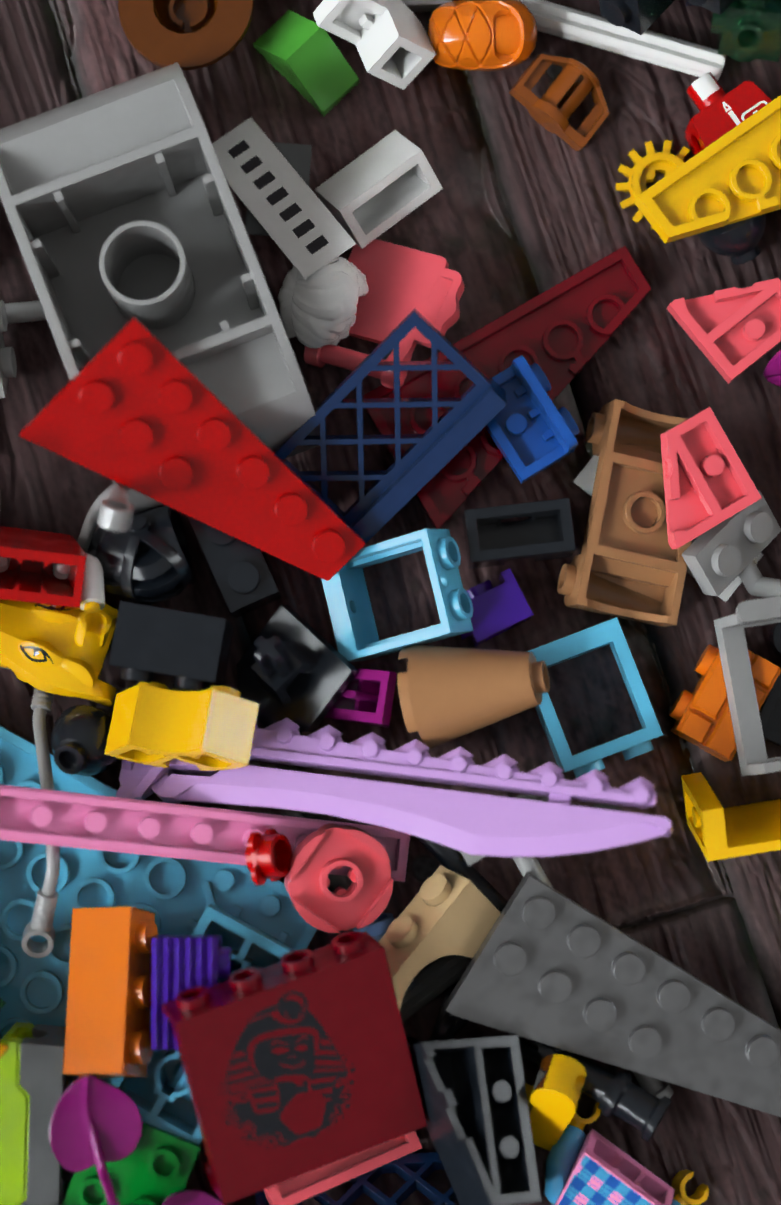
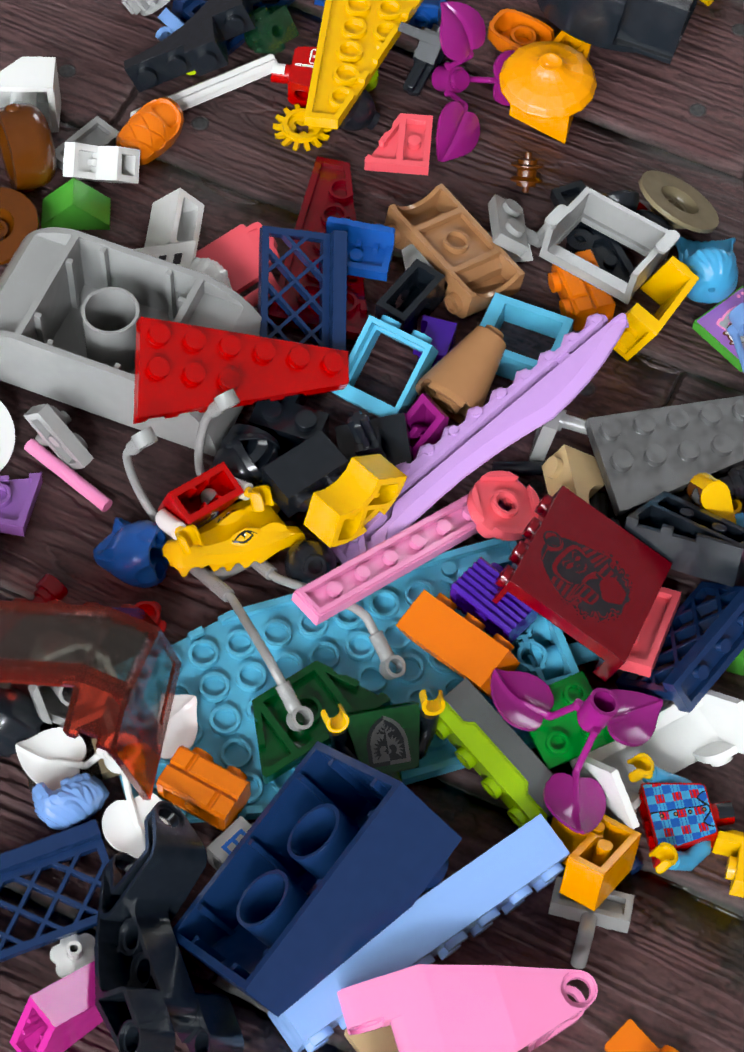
camera: 50 degrees left, 25 degrees down
(268, 856) = (460, 518): red plate -> none
(554, 116) = (217, 134): dark orange piece -> none
(701, 478) = (465, 202): coral wing -> none

